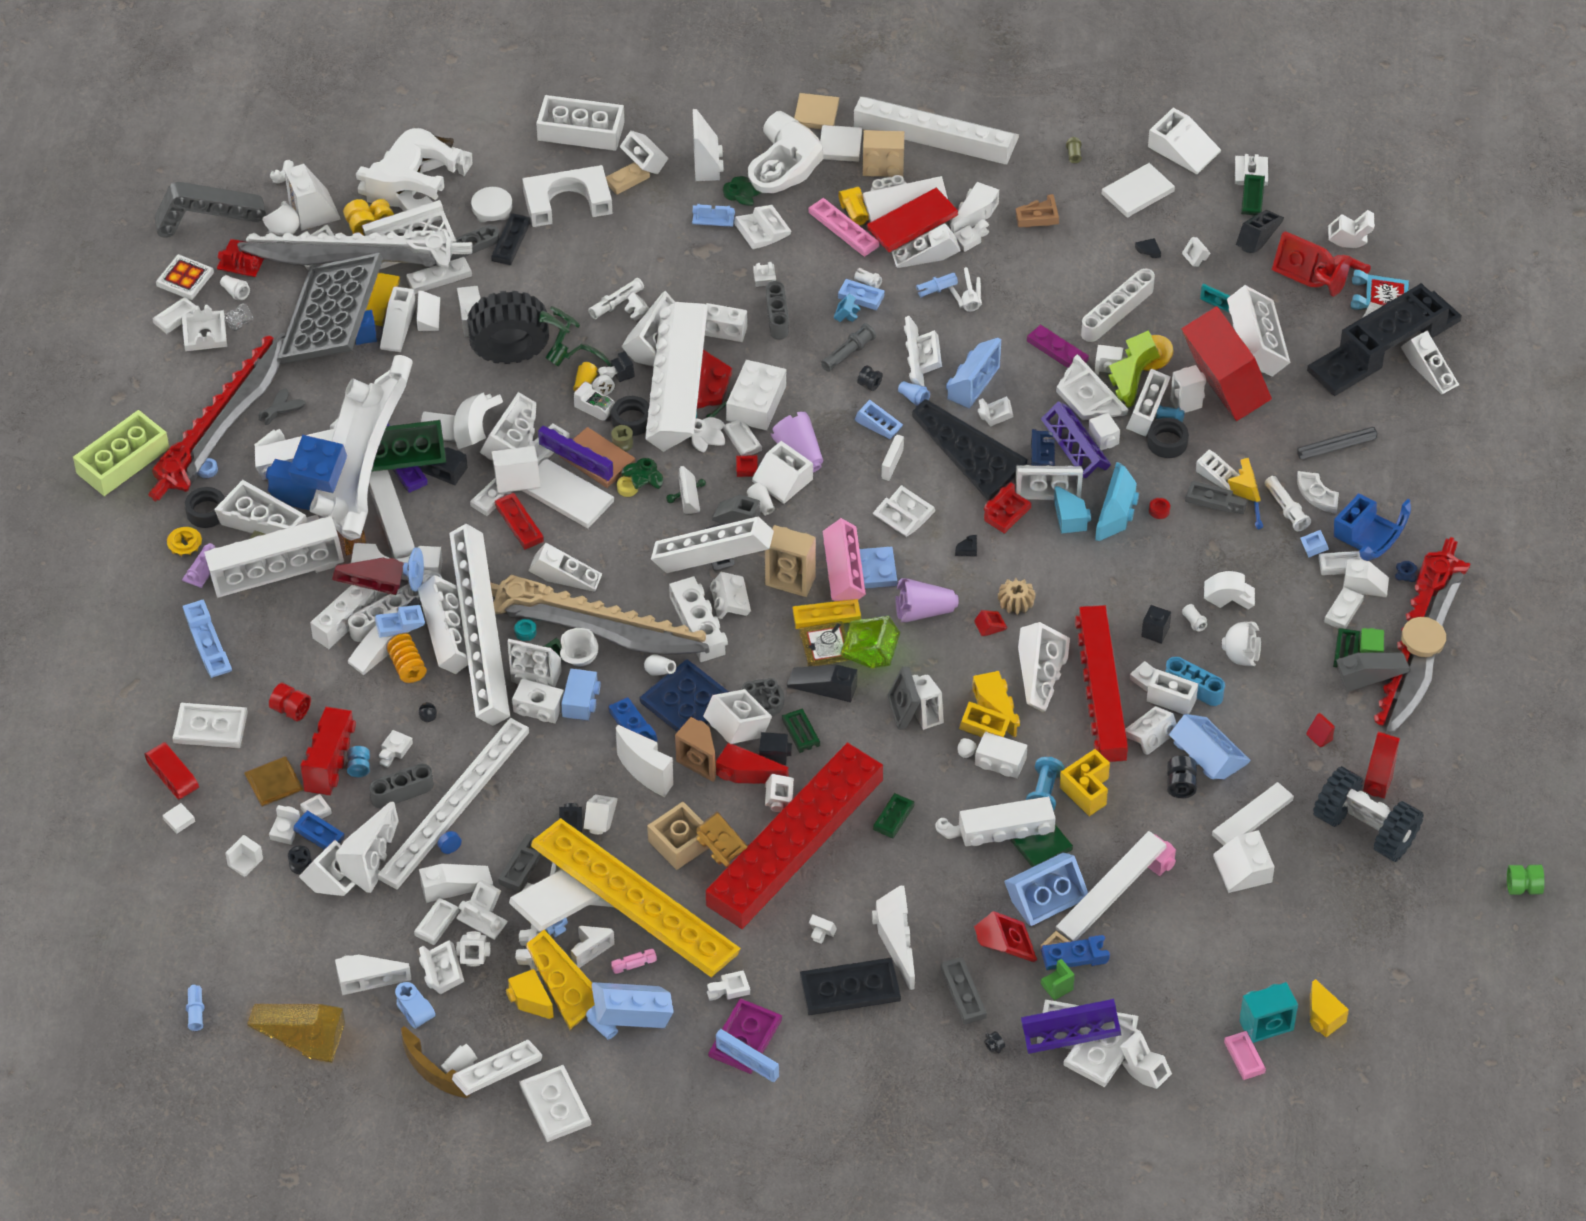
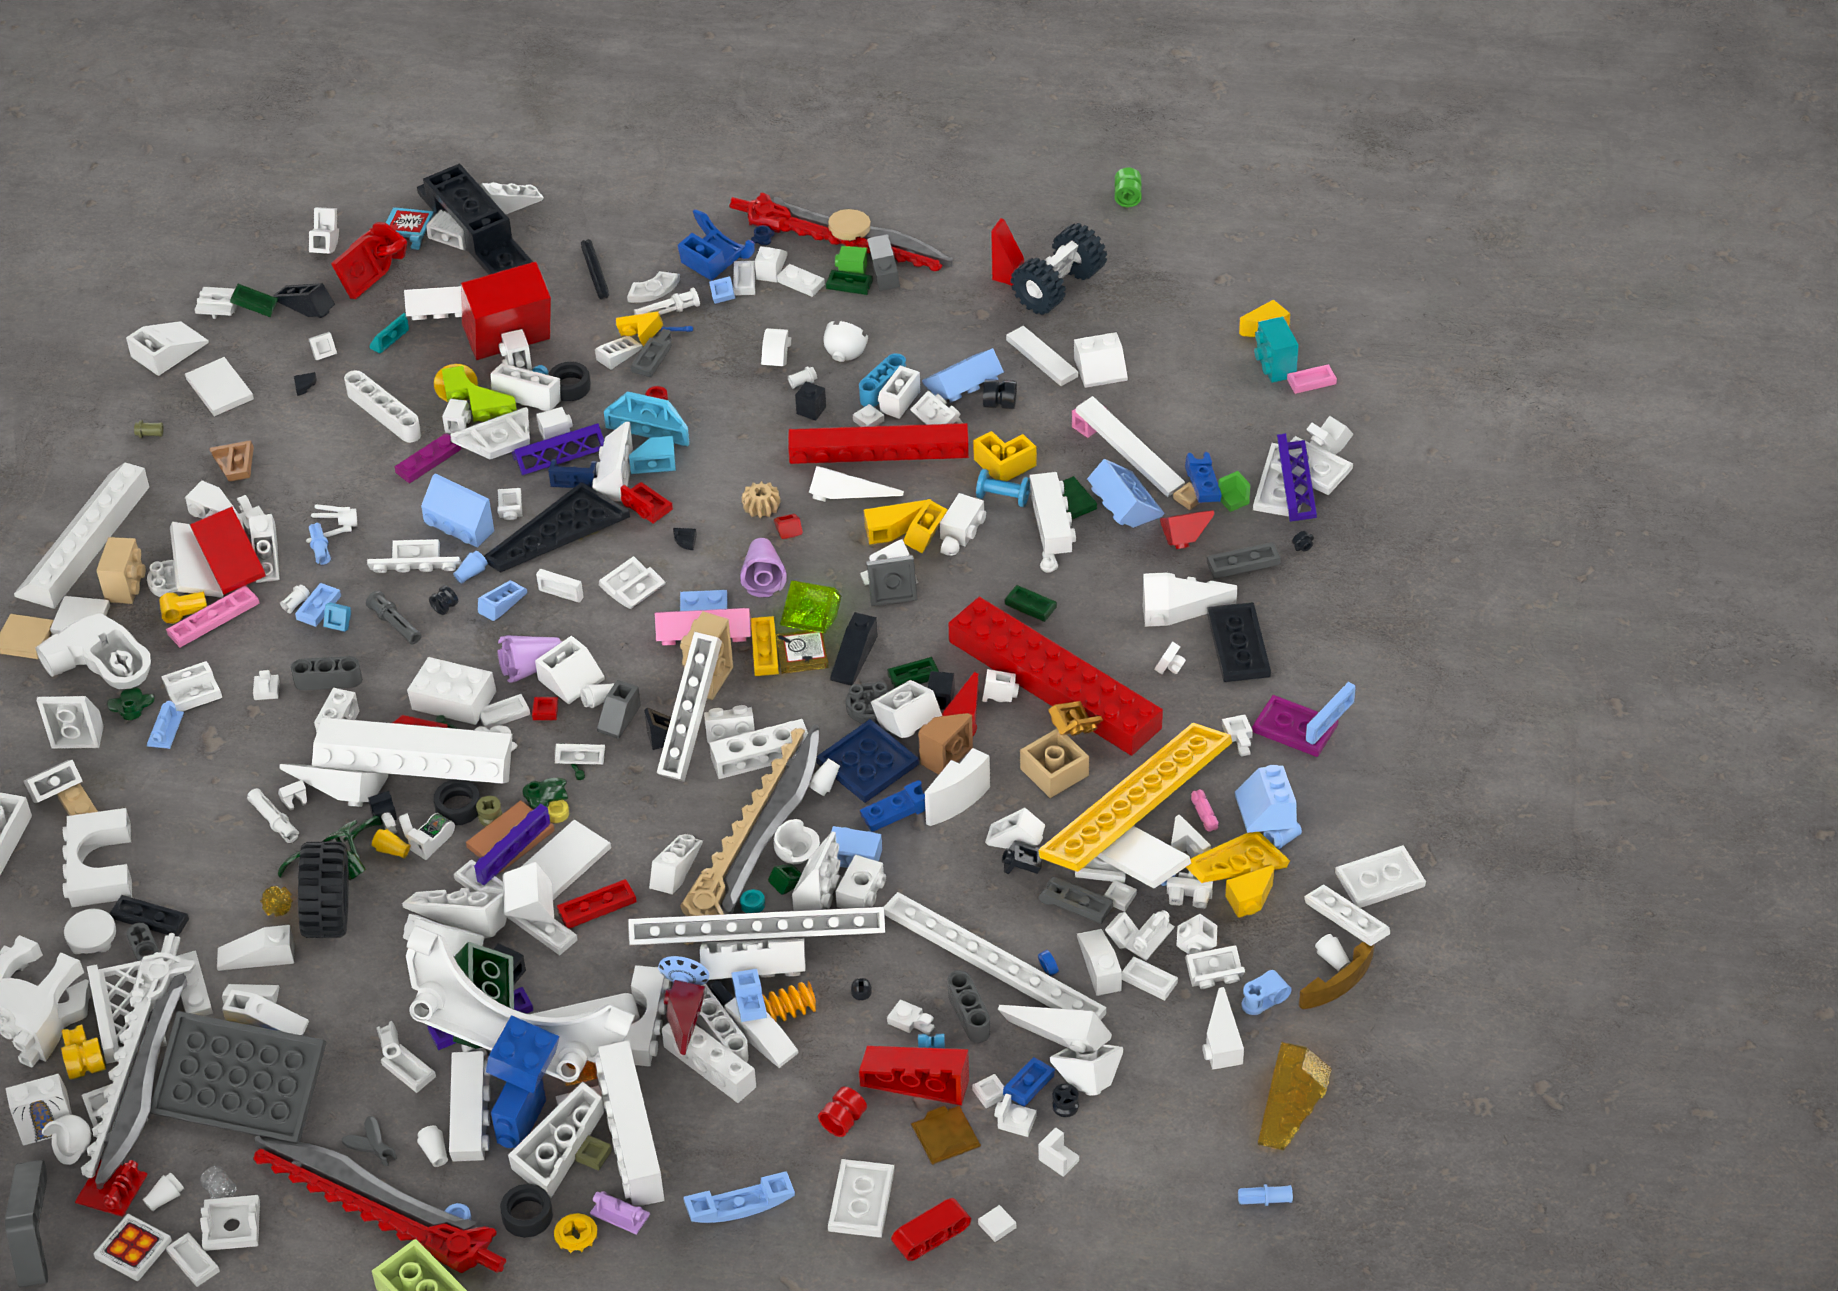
camera: 85 degrees left, 5 degrees down
(1321, 730) = (948, 302): red slope -> none

